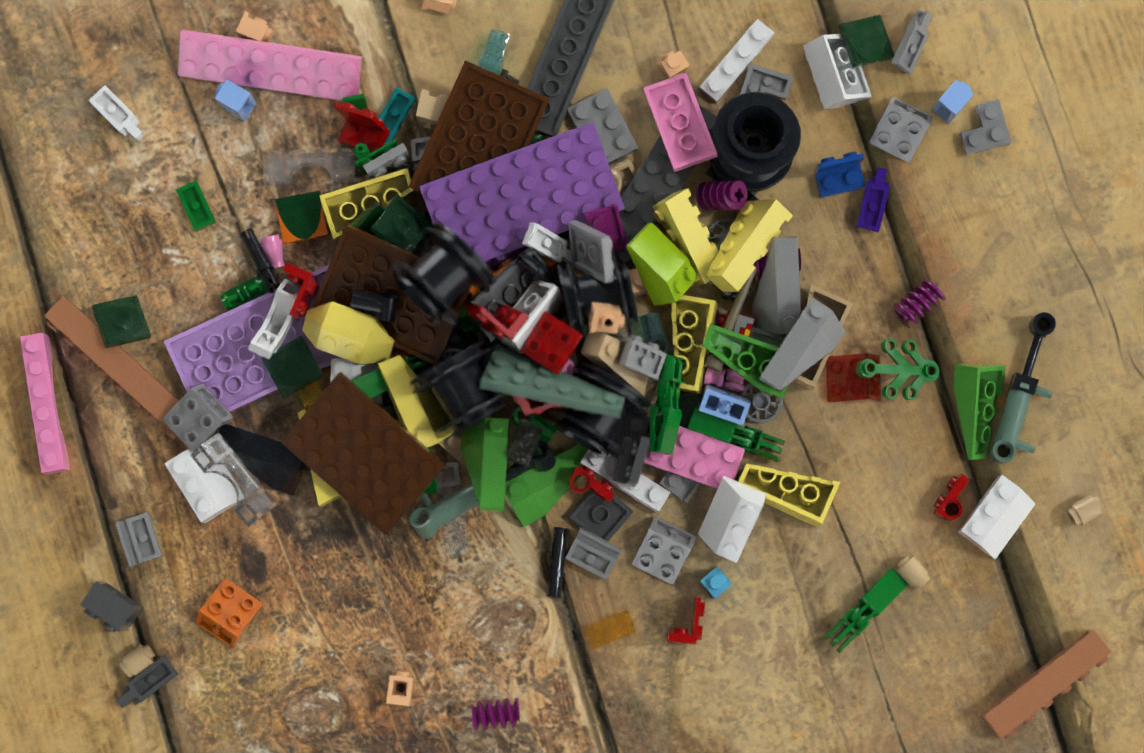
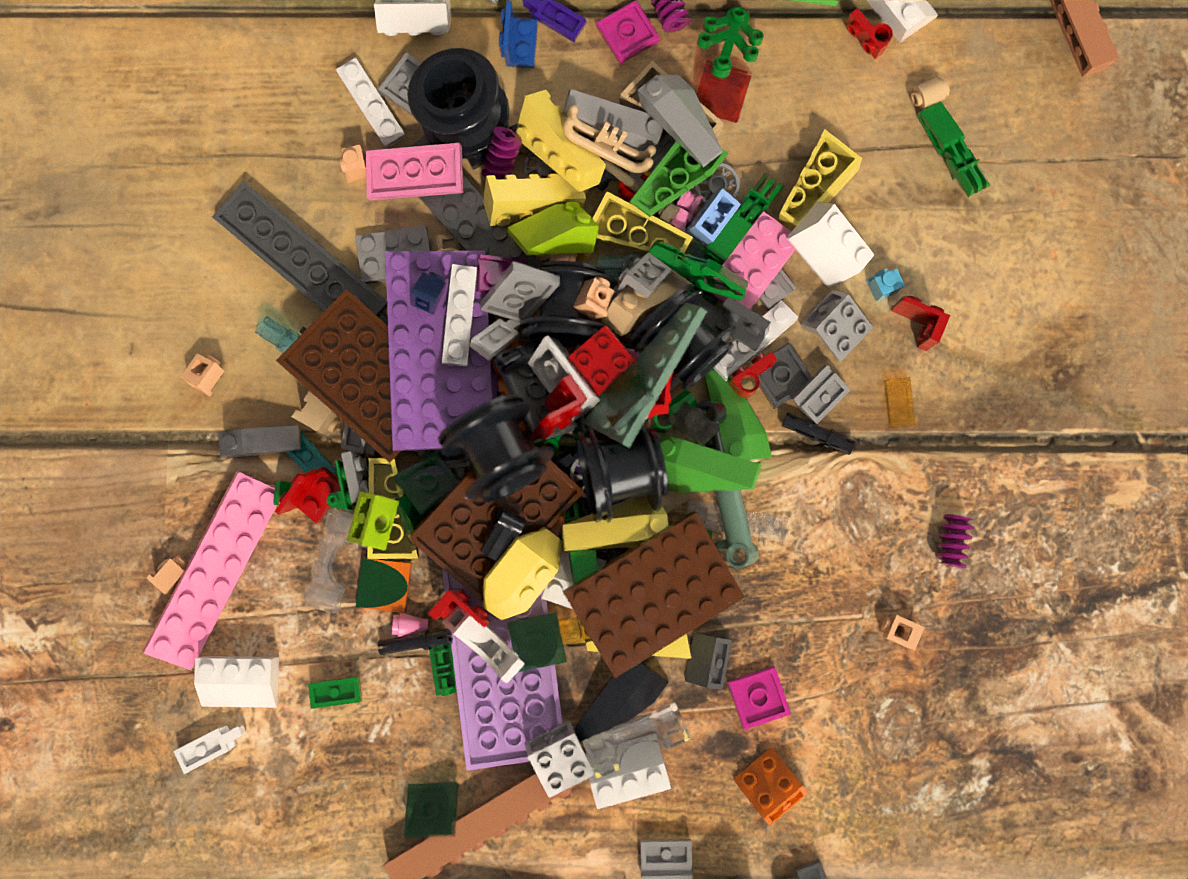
camera: 75 degrees left, 0 degrees up
(180, 118) = (237, 681): none -> white slope
(235, 100) = (236, 617): light blue brick -> none
(303, 580) = (759, 697): none -> dark pink tile
(322, 524) = (708, 661): none -> dark grey panel
(352, 189) = (372, 520): none -> lime brick
(394, 67) = (259, 441): none -> flat silver slope
(523, 371) = (626, 397): none -> dark green tile
(556, 205) = (459, 315): none -> white plate
(566, 171) = (427, 292): none -> dark blue slope
(757, 286) = (607, 143): none -> tan piece
(882, 273) = (627, 32): none -> dark pink tile

